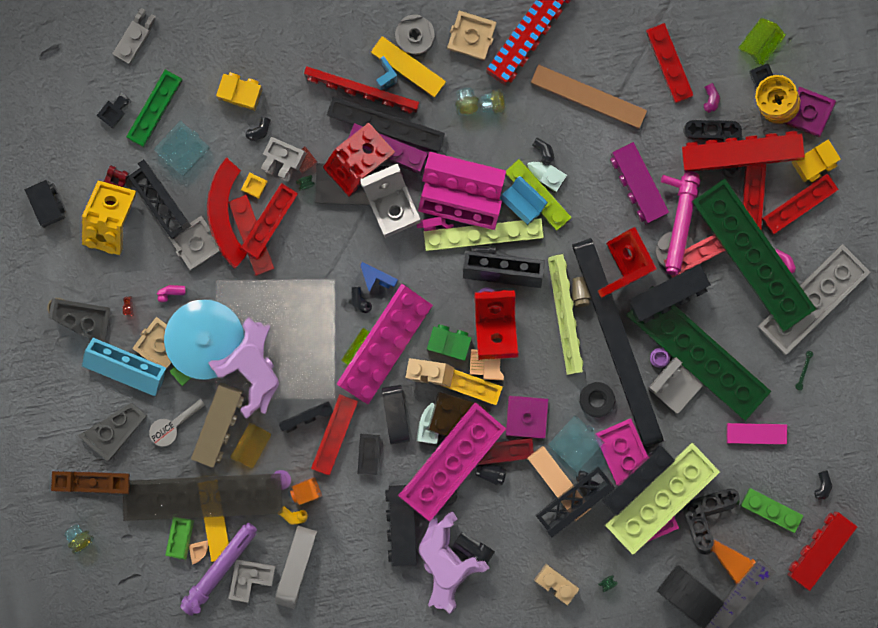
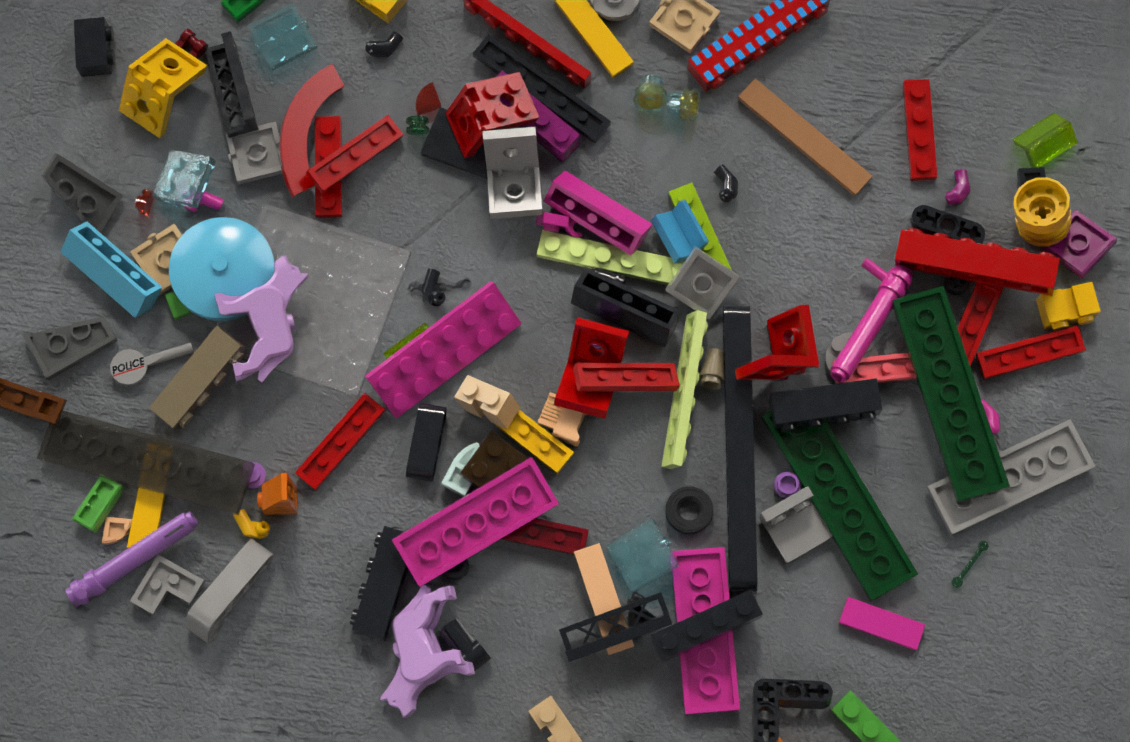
camera: 25 degrees right, 10 degrees down
(150, 280) = (184, 178): none -> clear light blue plate
(251, 445) = (230, 419): clear yellow panel -> none
(254, 185) = (354, 109): yellow tile -> none
(285, 154) = (402, 80): light grey plate -> none
(307, 417) = (312, 406): black hinge -> none
(368, 454) = (374, 480): black plate -> none
(372, 274) = (460, 261): blue slope -> none
(389, 78) = (562, 32): dark azure panel -> none
(449, 343) = (525, 376): green brick -> none
(464, 176) = (615, 178): dark pink brick -> none
(492, 474) = (521, 558): black cone -> none
(522, 321) = (626, 377): none -> red plate
(526, 417) = (591, 502): magenta plate -> none
(547, 175) = (721, 214): light aqua plate -> none
(552, 233) = (702, 282): none -> light grey plate
(639, 183) = (833, 260): magenta brick -> none
(662, 499) = (730, 661): yellowish green plate -> none
(826, 486) = (950, 723): black arm -> none

